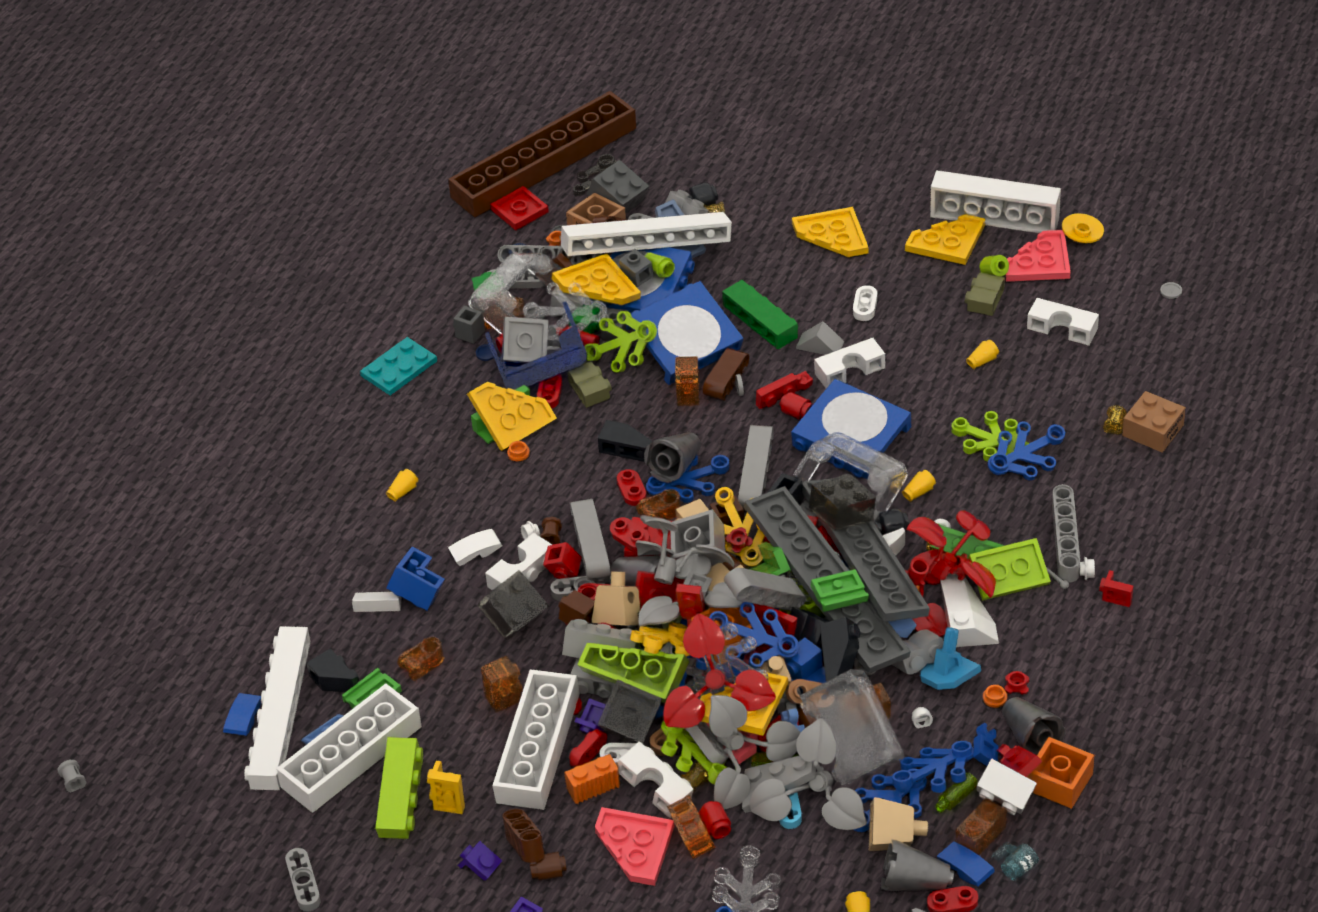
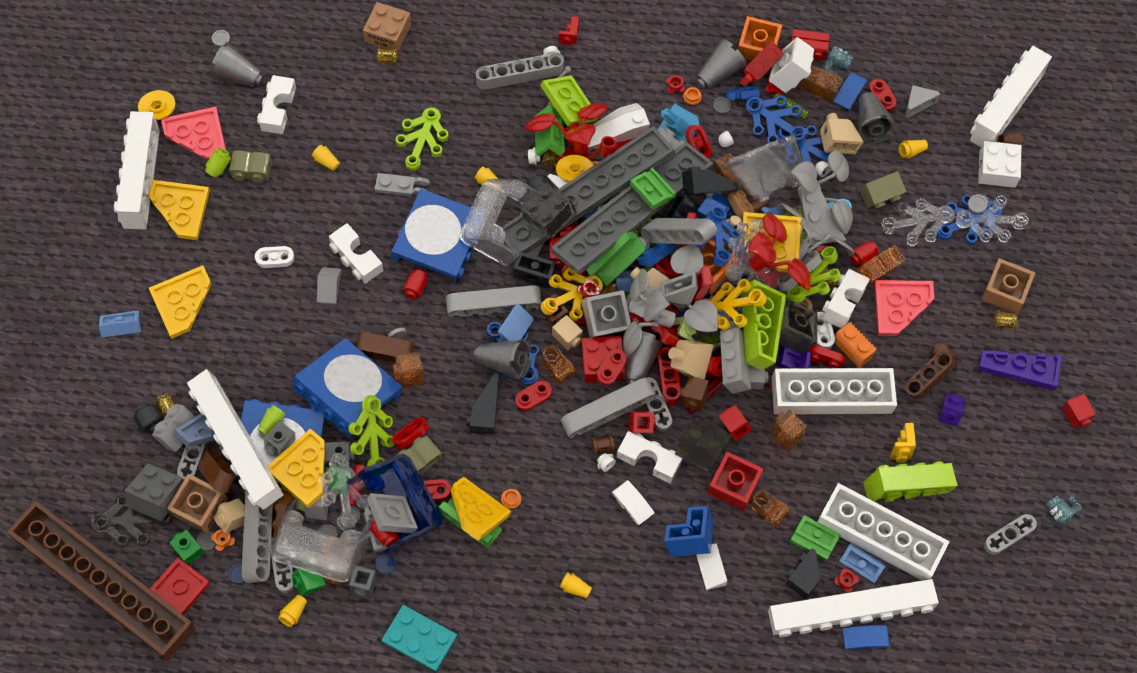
camera: 110 degrees left, 20 degrees up
(316, 708) = (852, 579): none -> red plate
(461, 278) = (292, 611): none -> yellow cone
(462, 629) = (735, 481): none -> red brick
(532, 644) = (735, 422): none -> red brick
(554, 212) = (186, 547): none -> green brick
(619, 382) = (410, 432): none -> red plate
(716, 474) = (515, 324): none -> medium blue slope
(760, 314) = (304, 336): green brick -> none
(775, 391) = (396, 299): red hinge -> none
(798, 855) = (883, 189): none -> olive brick
(821, 189) = (119, 324): none -> medium blue slope
(907, 549) = (572, 166): none -> yellow dish
(919, 677) = (698, 140): none -> red plate
(932, 413) = (399, 184): none -> light grey hinge
(971, 725) = (722, 105): none -> dark grey piece
(1024, 452) = (454, 123): blue plant -> none
(1048, 830) = (816, 40): none -> red brick
(1120, 287) = (235, 67): none -> flat silver cone

